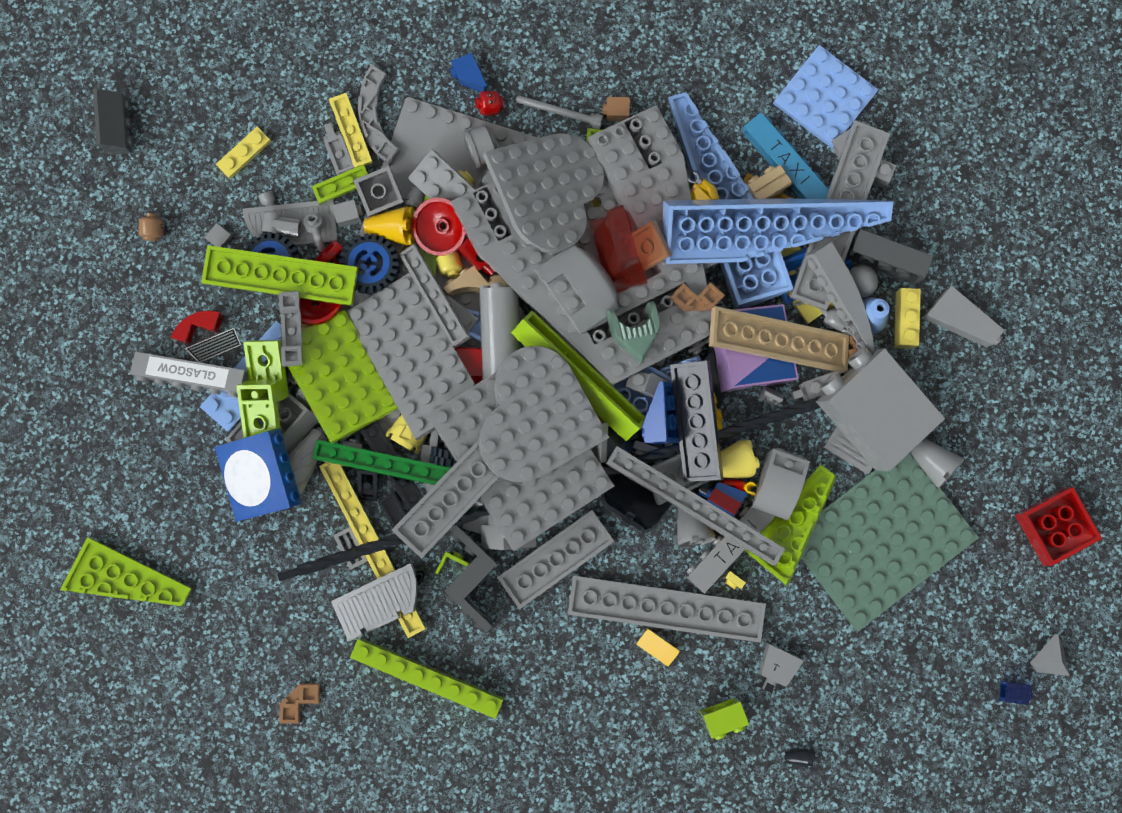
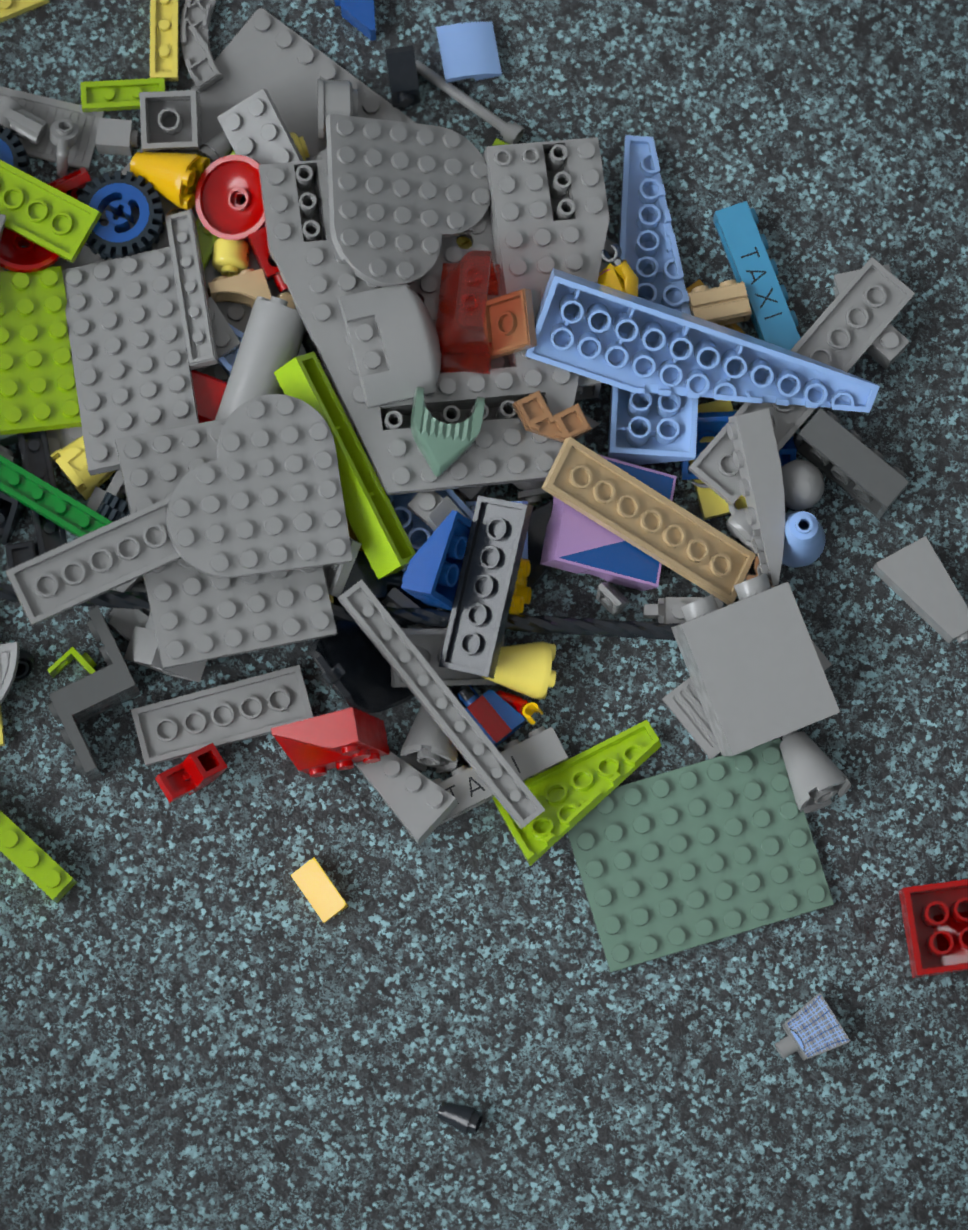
camera: 20 degrees right, 5 degrees down
(267, 198) = (13, 77): light grey hinge -> none
(337, 150) = (135, 46): light grey hinge -> none
(489, 103) = (370, 55): red head -> none
(515, 109) = (402, 76): none -> black slope
(549, 78) = (468, 51): none -> light blue slope
(551, 604) = (192, 774): none -> red brick
(616, 108) = (546, 124): medium nougat brick -> none
(636, 553) = (333, 741): none -> red slope
(666, 609) = (352, 841): light grey plate -> none
(692, 567) = (410, 794): none -> light grey wing
(724, 718) = (372, 1018): lime brick -> none
(733, 580) = (460, 836): light yellow plate -> none
(778, 667) = (477, 979): light grey torso -> none
(780, 483) = (575, 720): light grey piece -> none
(825, 96) = (850, 211): light blue plate -> none
(907, 318) = (847, 560): light yellow brick -> none
(995, 622) = (812, 1031): none -> light grey torso
(1015, 692) = (803, 1139): clear blue brick -> none
(1051, 658) = (874, 1111): light grey slope -> none

